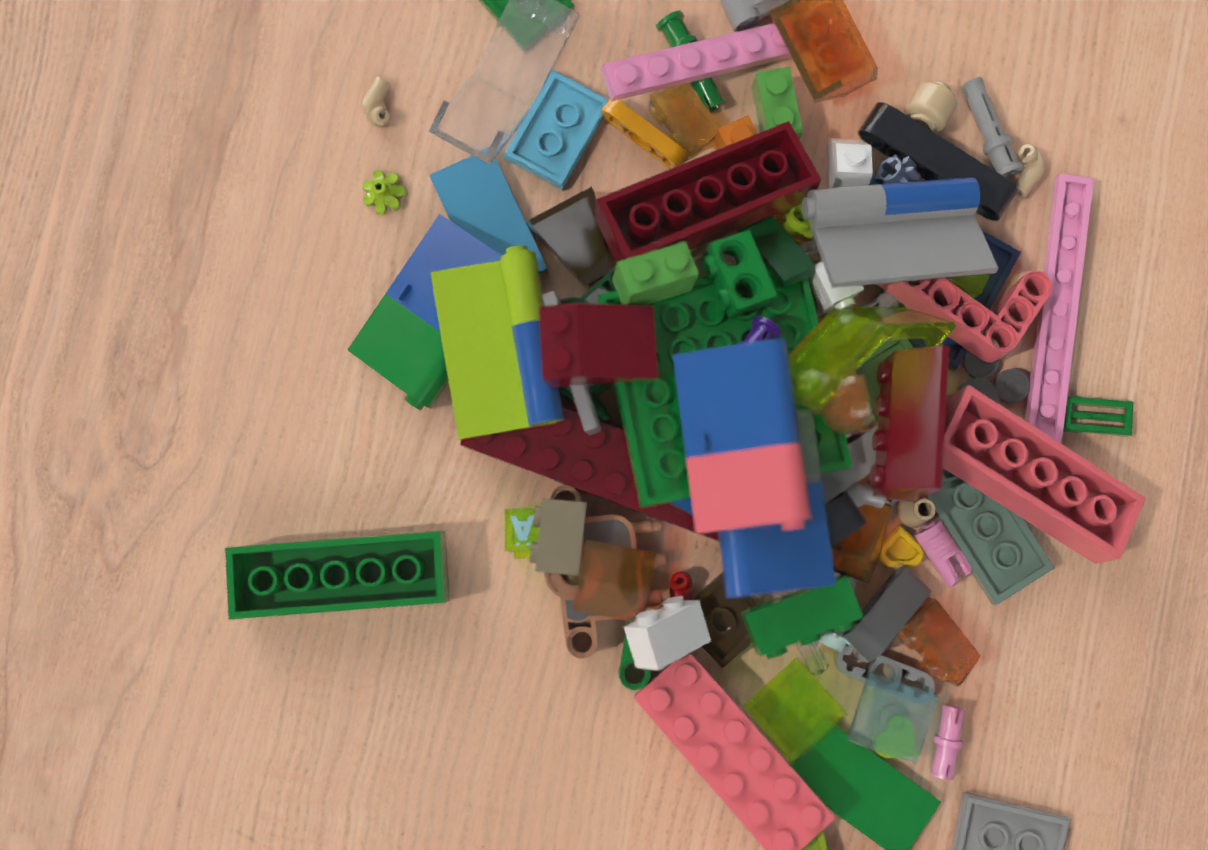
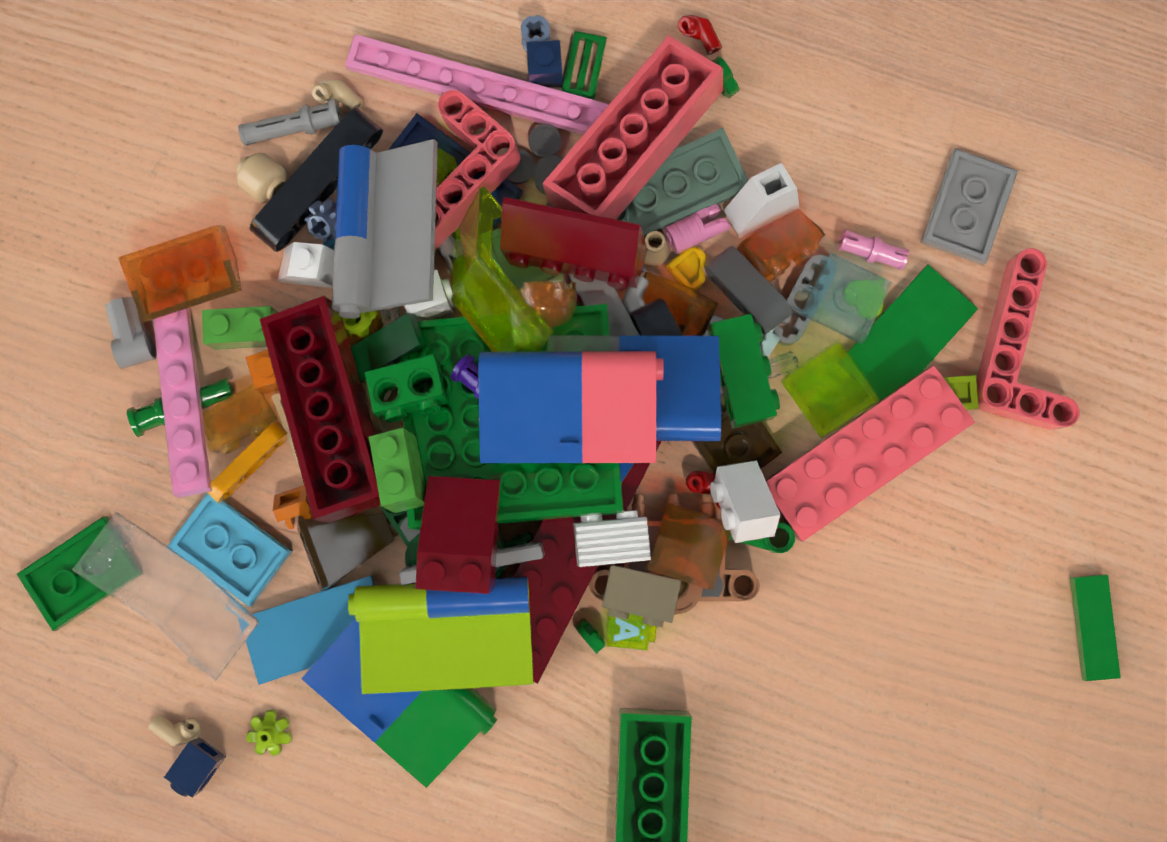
camera: 85 degrees left, 0 degrees up
(343, 125) = (194, 767): none -> dark blue brick
(513, 492) = (590, 635): none -> green tile
(606, 179) = (291, 504): none -> orange tile
(611, 500) = (611, 540): none -> white brick
(983, 618) = (762, 201): none -> white slope
(1094, 374) = (545, 63): none -> dark blue brick
(1101, 570) = (730, 85): none -> green tile
(1131, 358) = (532, 26): none -> sand blue bush
(1155, 534) = (700, 29): none -> red arm

